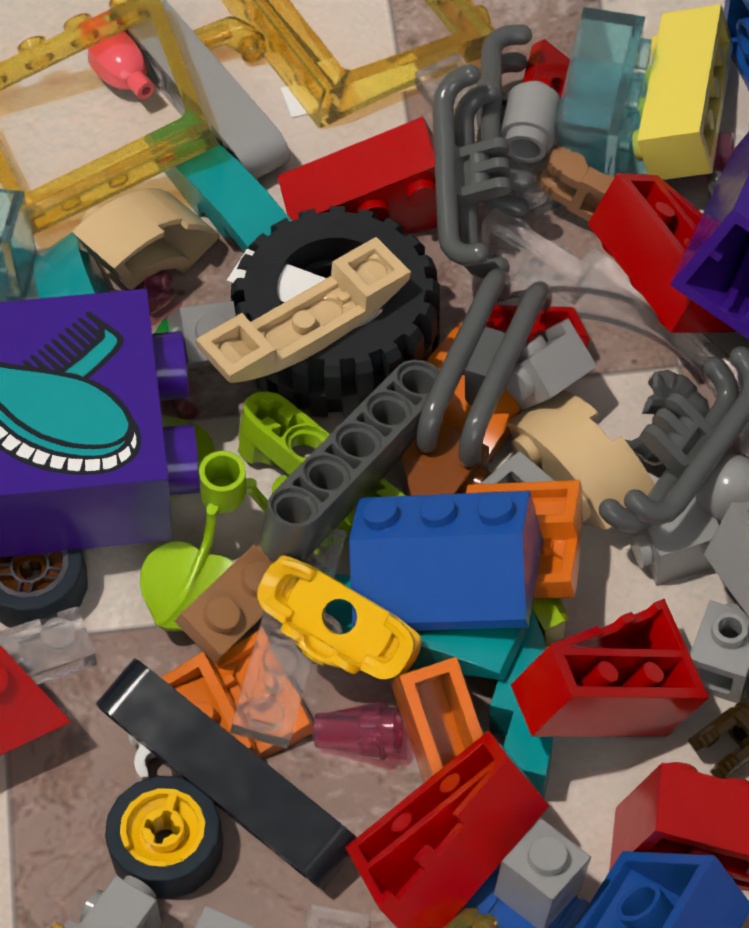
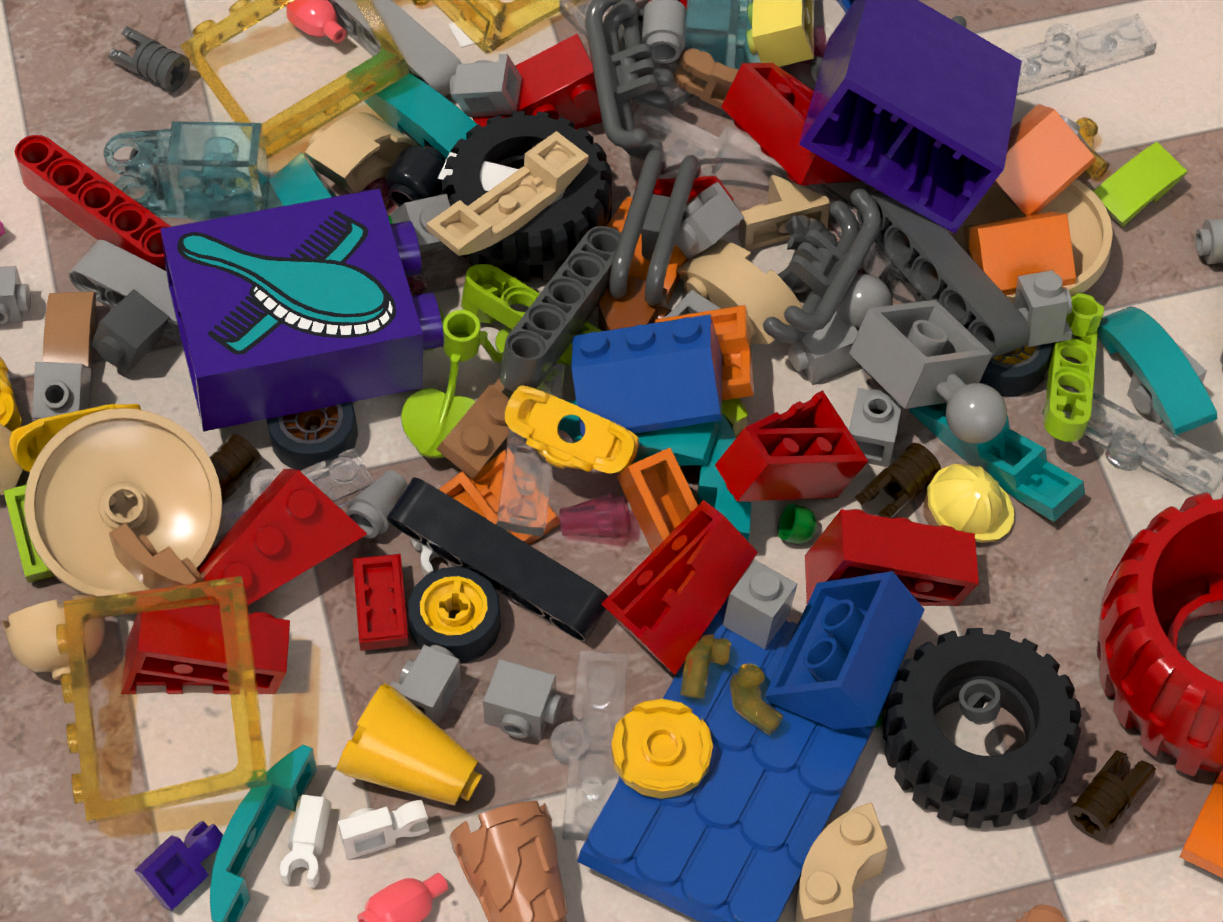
camera: 10 degrees left, 0 degrees up
(76, 809) = (380, 602): none -> red plate
(88, 680) = (375, 502): none -> light grey cone
(203, 270) = (415, 175): none -> black head
(305, 172) = (487, 87): none -> light grey brick
(610, 768) = (797, 524): none -> green hinge
(626, 373) = (766, 224): none -> tan slope

